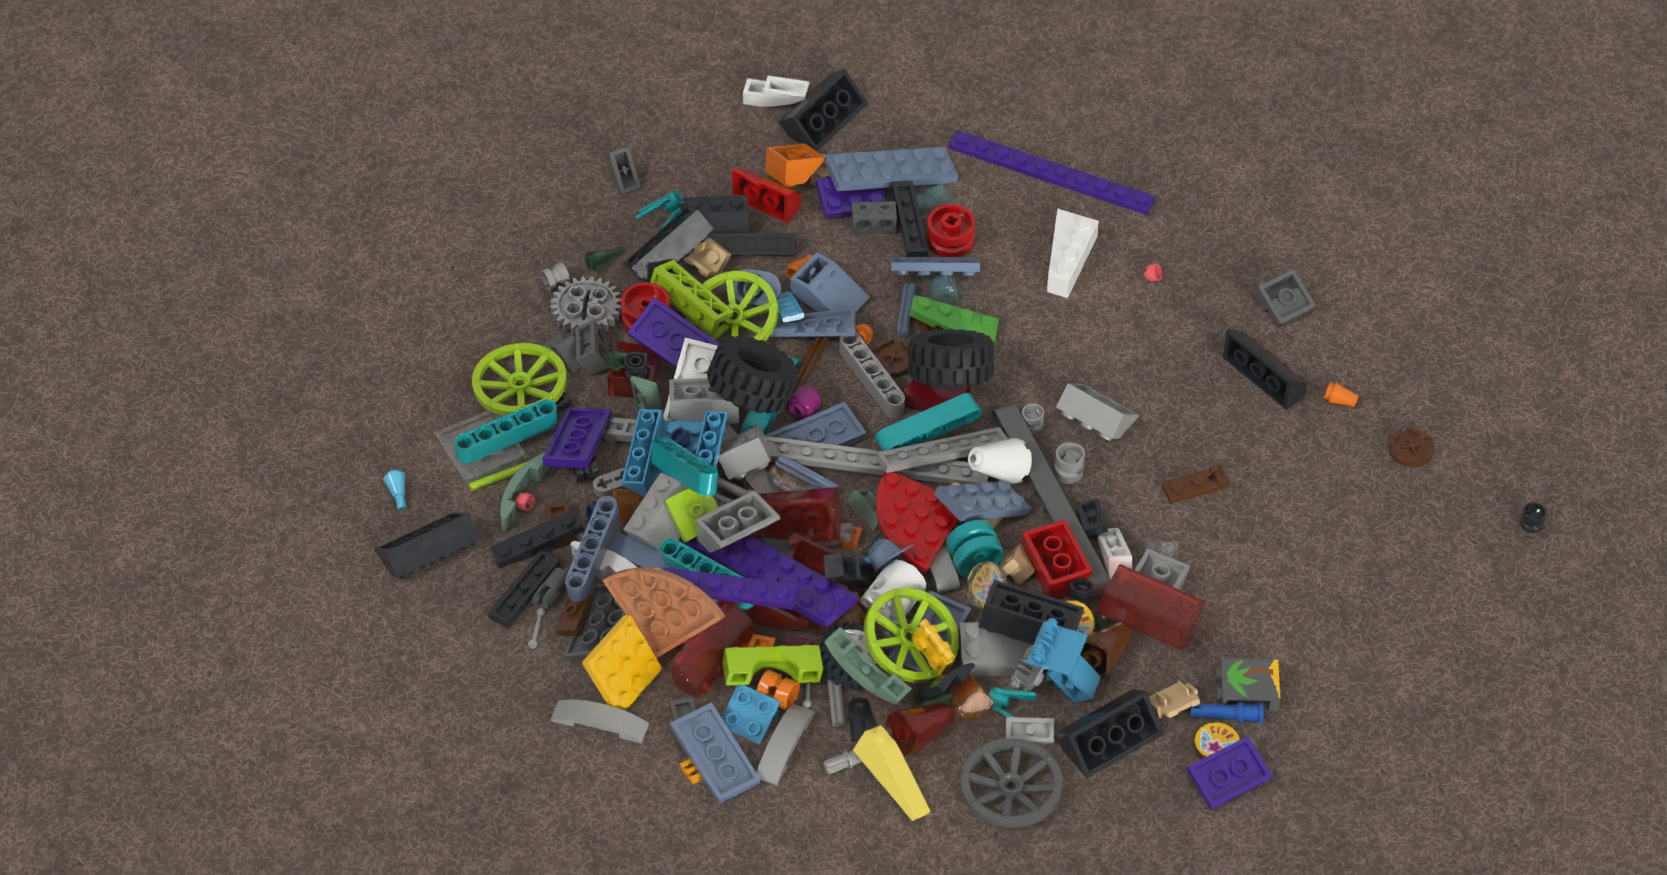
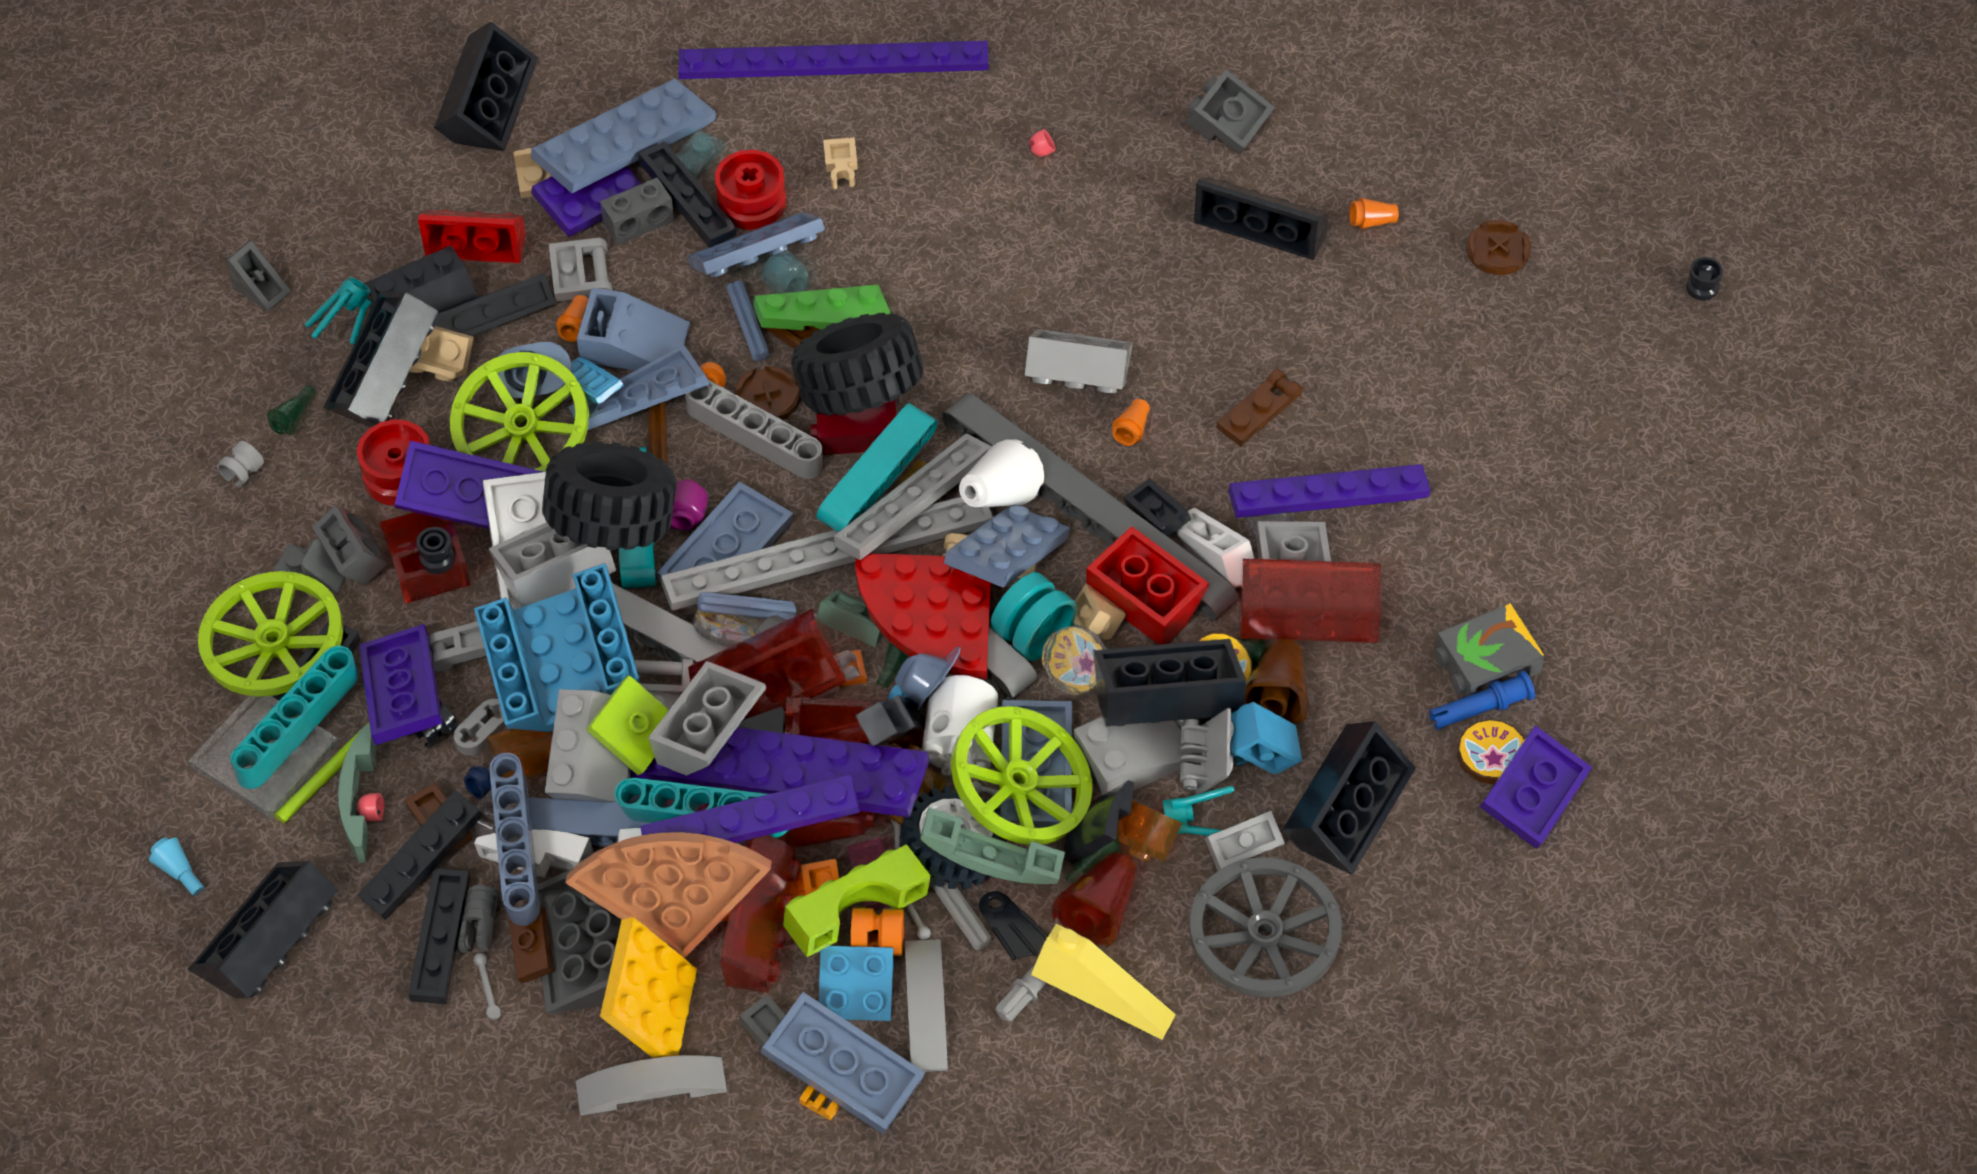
camera: 25 degrees left, 5 degrees up
(570, 303) = (328, 476): light grey gear -> none
(615, 359) = (403, 548): clear green cone -> none
(645, 393) = (464, 583): sand green slope -> none
(681, 436) = (554, 626): dark blue plate -> none
(684, 466) = (592, 667): teal beam -> none
(686, 298) = (447, 422): lime fence -> none
(744, 453) = (653, 610): light grey slope -> none
(774, 91) = (407, 88): white slope -> none
(792, 163) = (487, 178): orange slope -> none
(814, 237) = (569, 271): none -> light grey plate
(933, 647) = (1066, 781): yellow plate -> none
(1019, 234) = (841, 159): none -> tan plate
(1033, 416) = (1003, 399): light grey wheel -> none
(1056, 648) = (1236, 713): dark azure hinge -> none
(1069, 462) = (1086, 444): light grey wheel -> none
(1071, 246) = (918, 151): white wedge -> none
(1081, 590) = (1205, 617): black wheel -> none
(1106, 462) = (1131, 423): none -> orange cone
(1174, 699) = (1407, 713): tan piece -> none
(1207, 550) = (1328, 490): none -> dark purple plate

